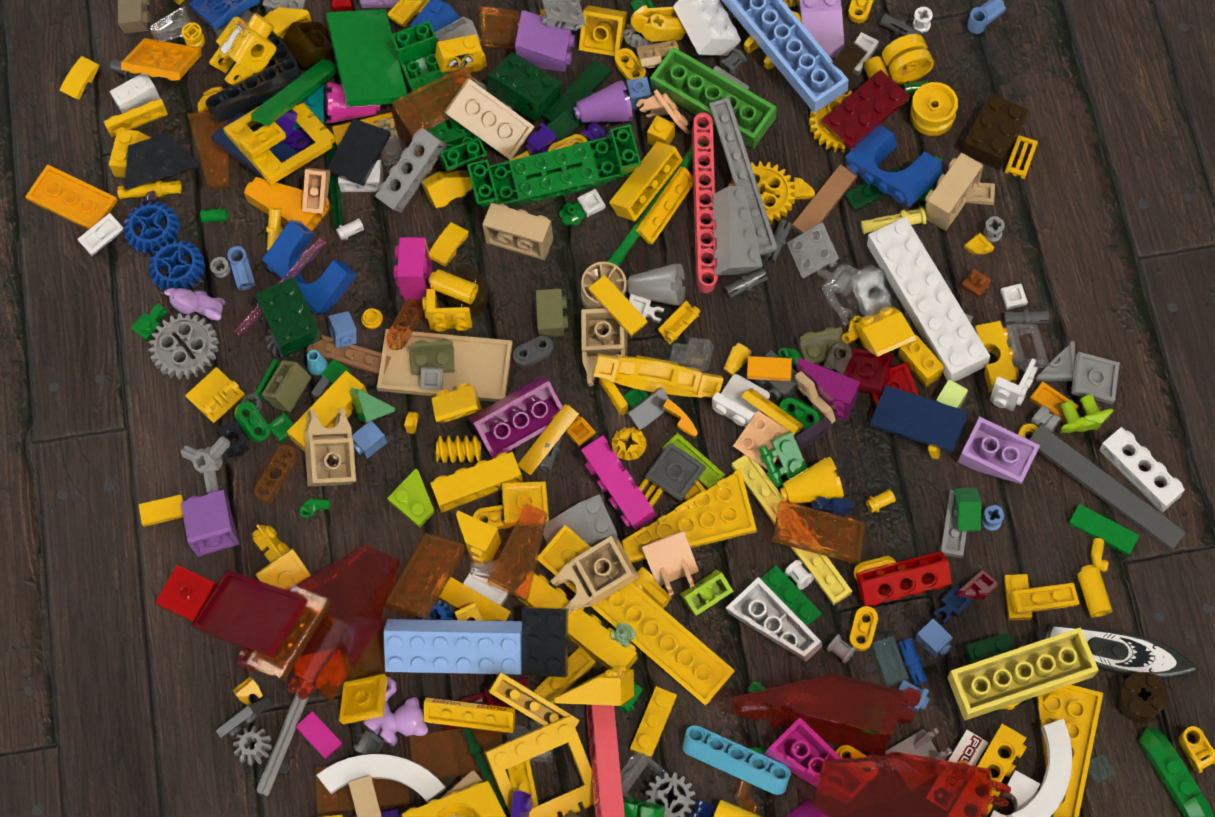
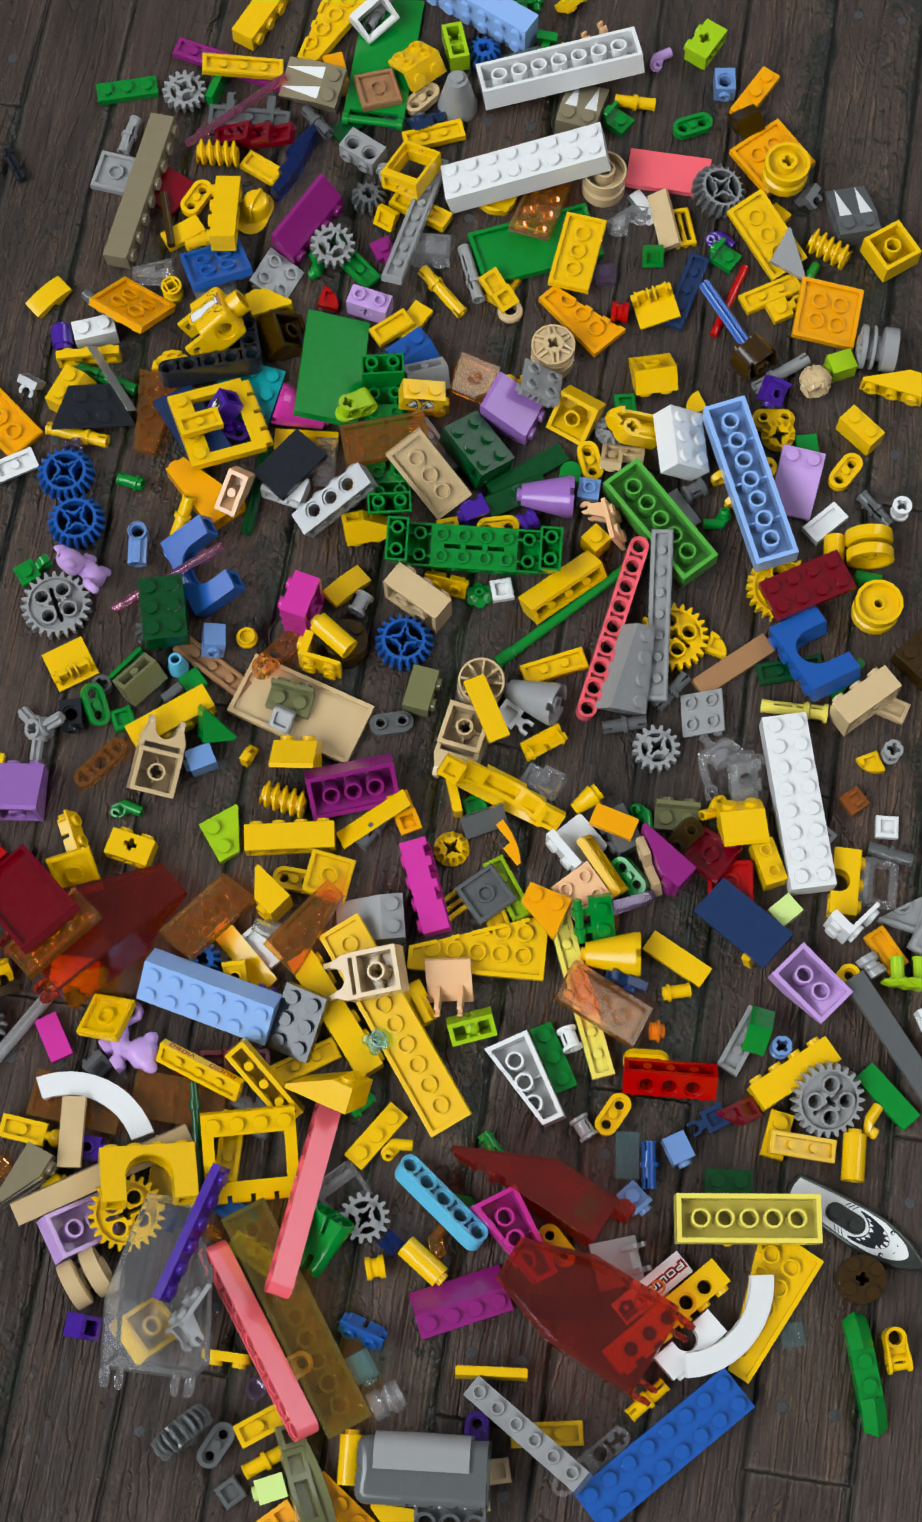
camera: 15 degrees right, 5 degrees up
(89, 157) = (31, 382): none -> light grey tile
(104, 107) = (61, 336): none -> dark purple brick
(165, 128) = (112, 378): none -> light grey sticker
(183, 133) = (129, 387): none -> green pin
(217, 261) = (120, 542): light grey bush -> none
(294, 92) = (247, 383): green tile -> none
(341, 544) = (118, 844): none -> yellow brick
(349, 229) = (256, 539): white pin -> none
(401, 80) = (355, 405): none -> lime piece
(466, 255) = (360, 603): none -> light grey bush
(536, 272) = (411, 644): none -> blue gear
(549, 210) = (455, 586): none -> yellow hinge
(615, 76) = (571, 468): none -> green tile
(664, 252) = (555, 666): none -> yellow tile
(665, 205) = (573, 618): yellow tile -> none
(673, 726) = (394, 1146): none -> yellow arm
(736, 463) = (546, 907): none -> light orange wing
(765, 81) = (719, 521): none -> green arm
(774, 289) = (649, 743): none -> light grey gear
(849, 57) = (810, 527): dark brown slope -> none
(870, 472) = (677, 959): none -> yellow tile
(875, 541) = (656, 1031): none -> orange plate
(1013, 536) = (778, 1083): none -> yellow brick
(1052, 548) = (815, 1085): none -> light grey gear

